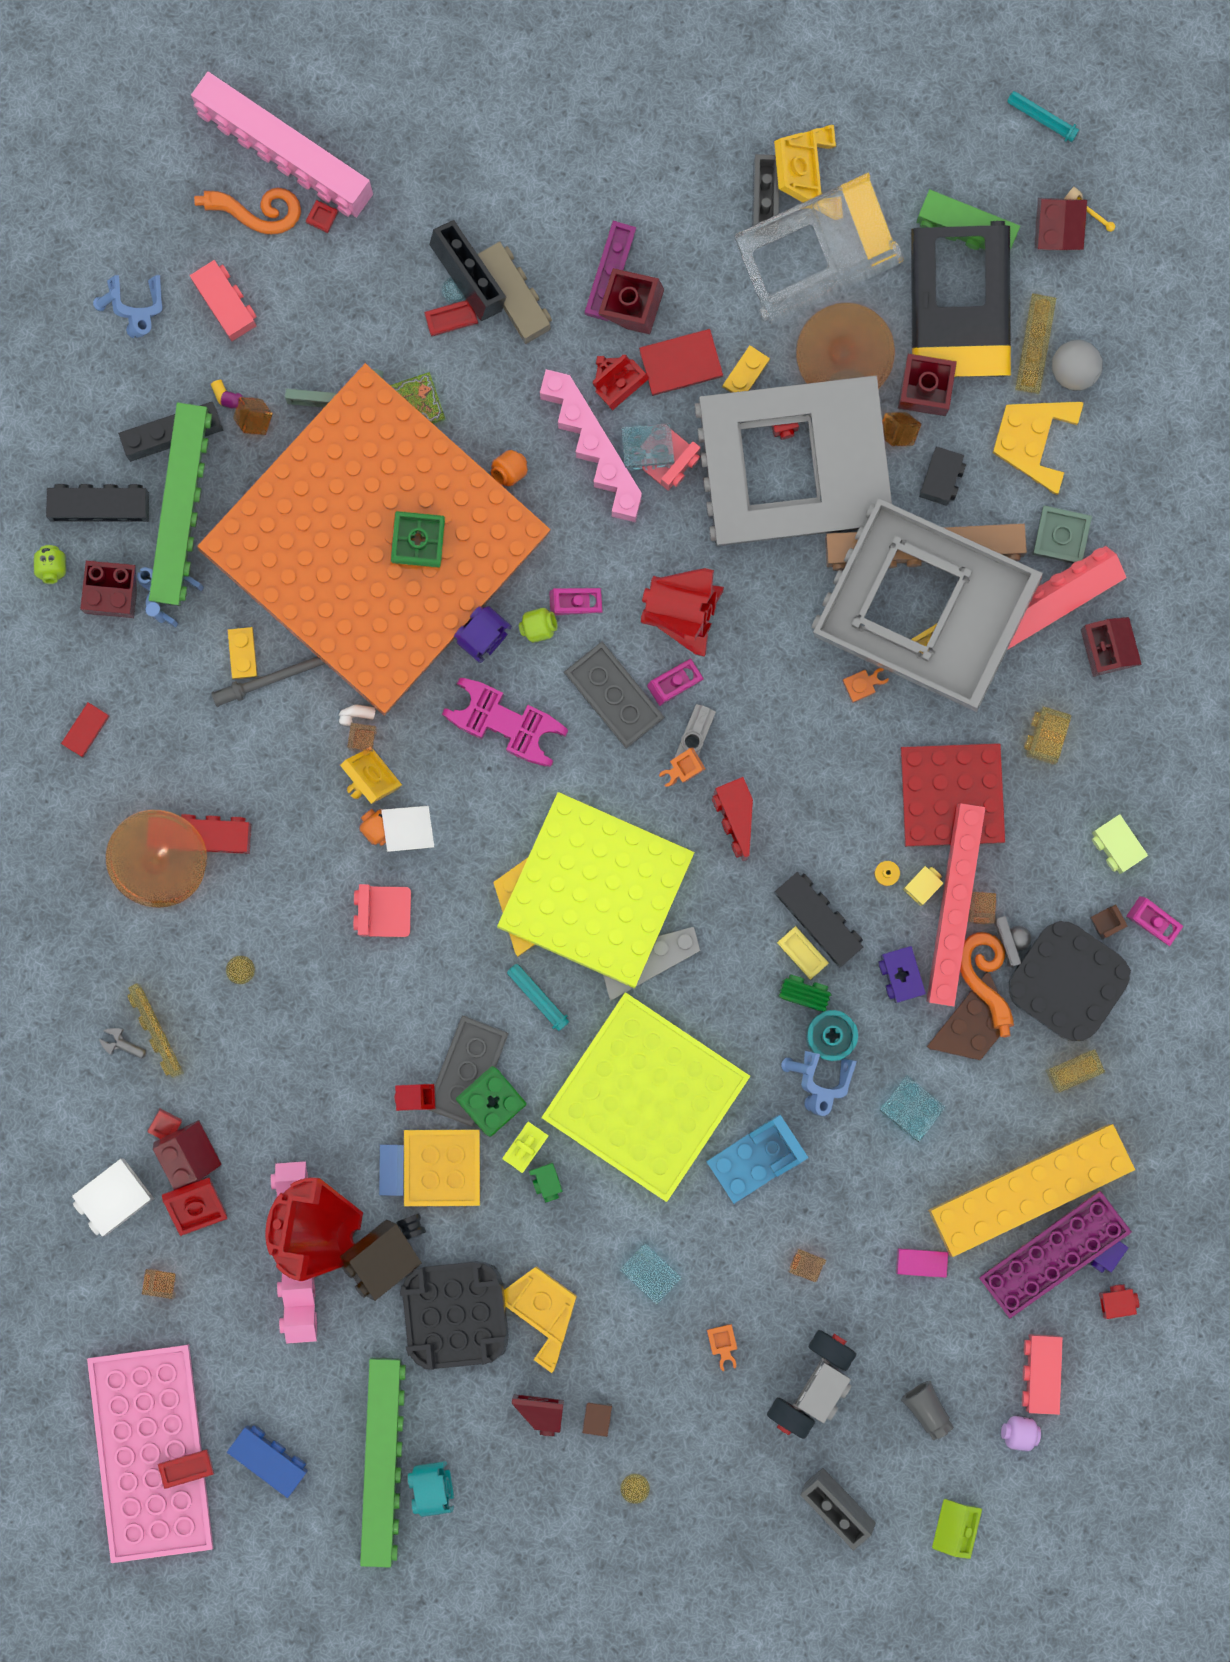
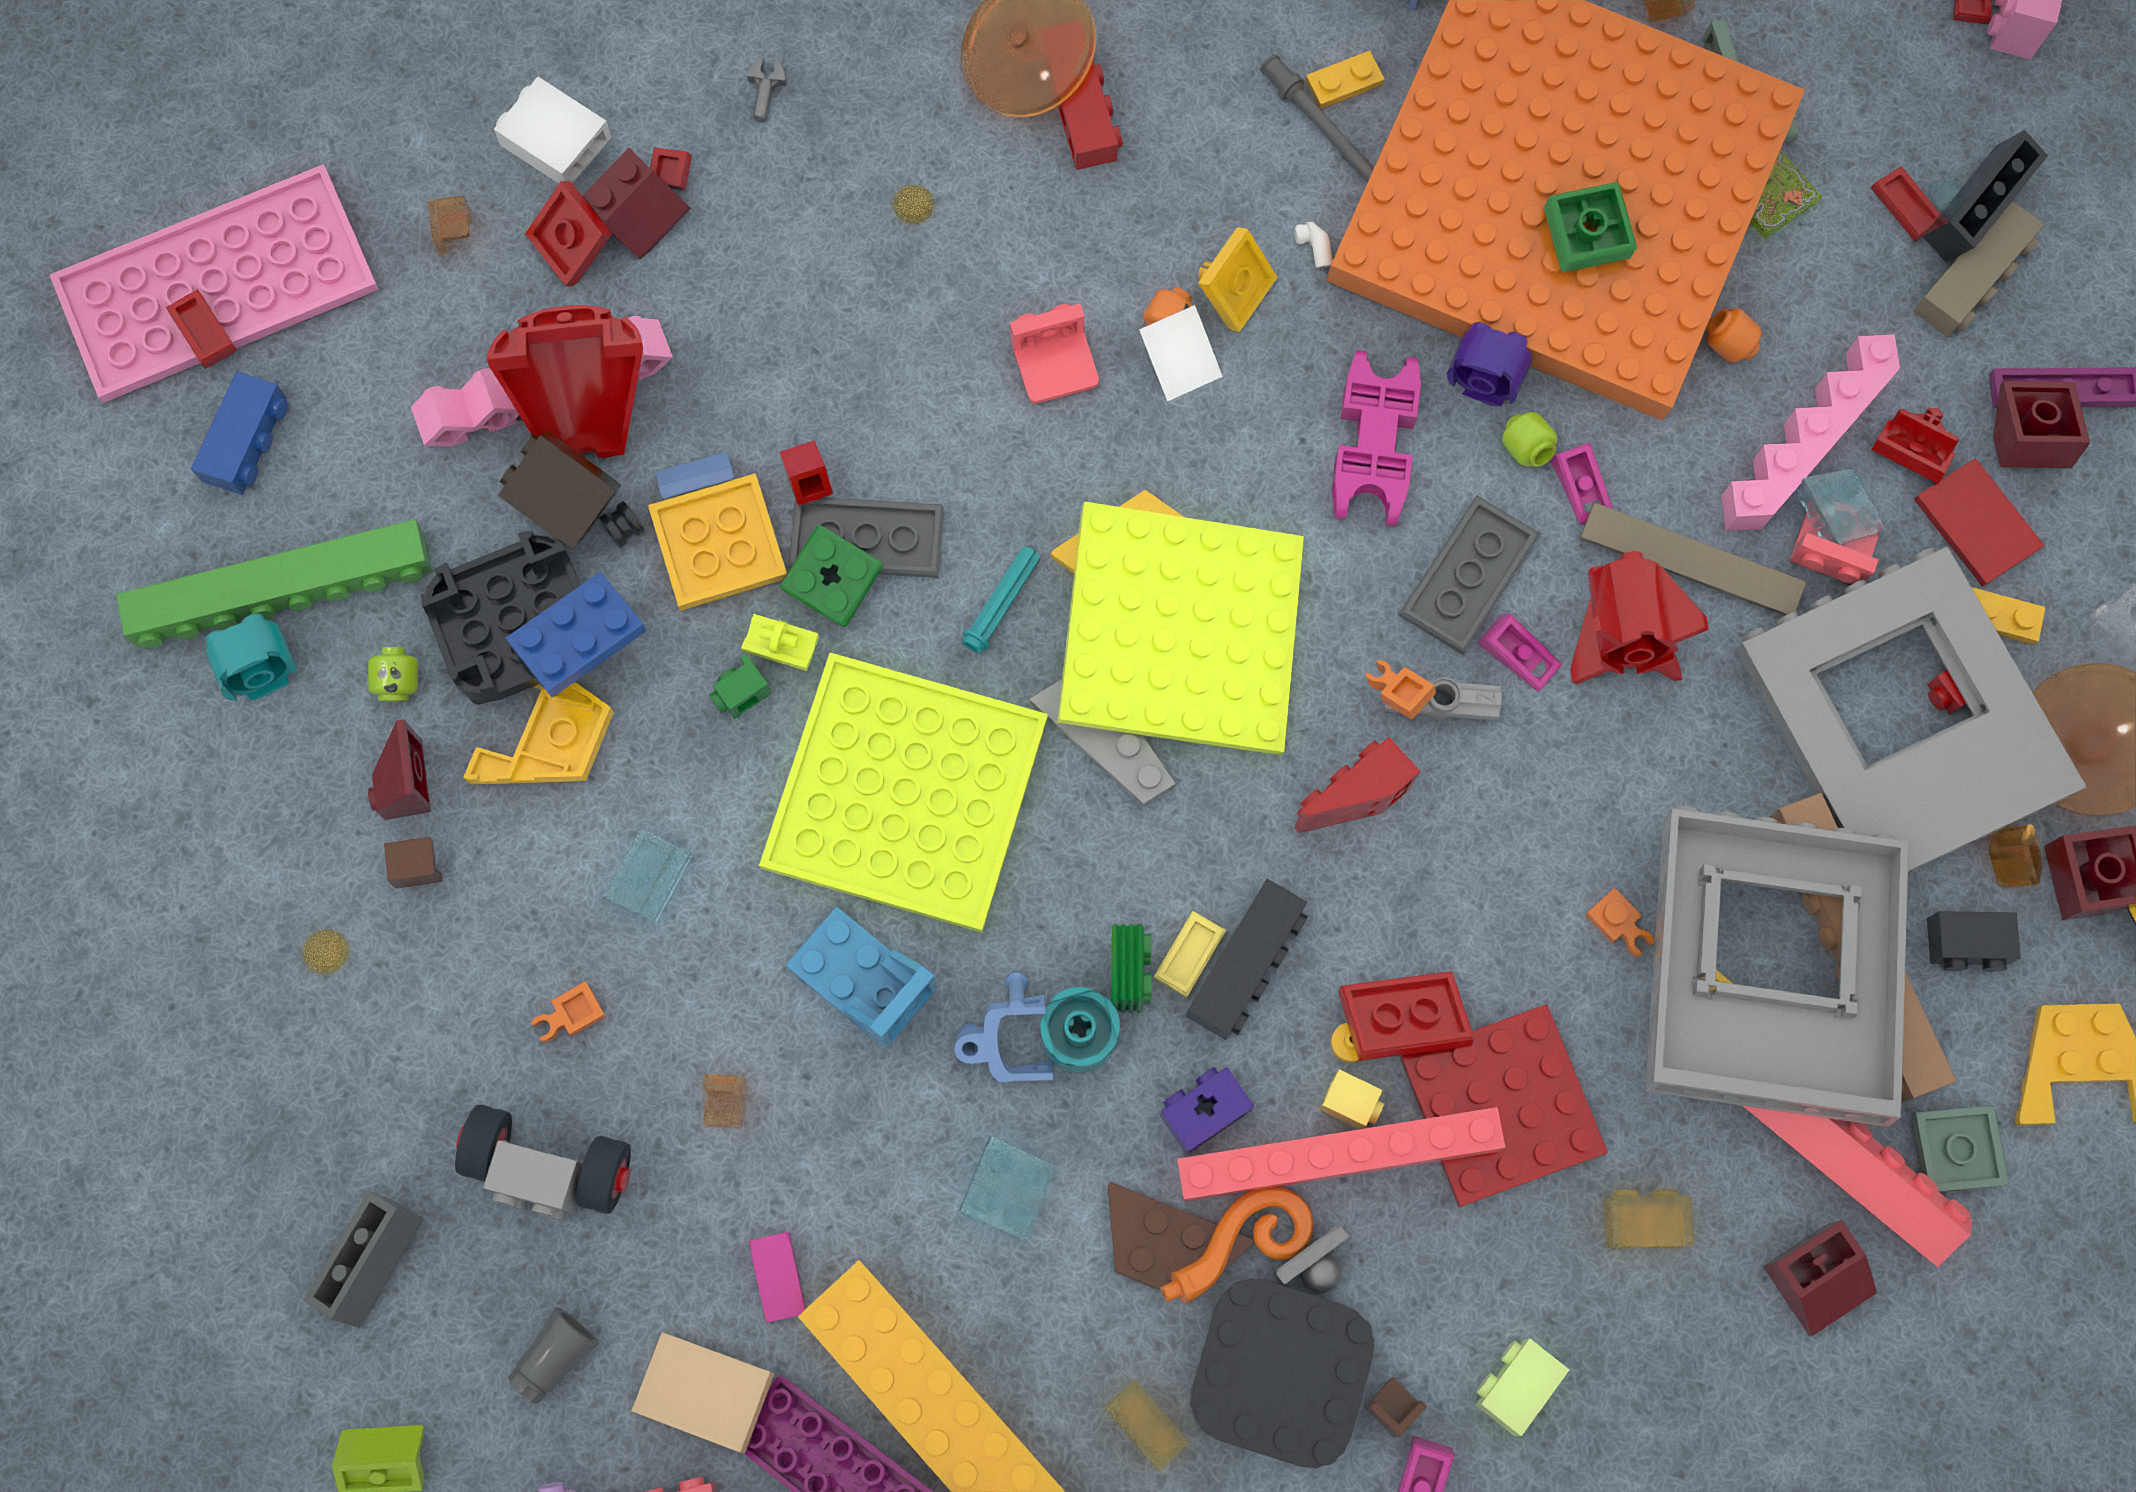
camera: 70 degrees right, 10 degrees down
(150, 1022) = (789, 124): clear yellow plate -> none
(361, 737) = (1286, 253): clear orange panel -> none
(468, 1400) = (393, 674): none -> lime head
(487, 1275) = (576, 634): none -> blue plate
(649, 552) = (1694, 560): none -> dark tan tile
(883, 835) = (1405, 1015): none -> red tile
(977, 1326) = (703, 1392): none -> tan tile
(982, 908) = (1347, 1199): clear orange panel -> none

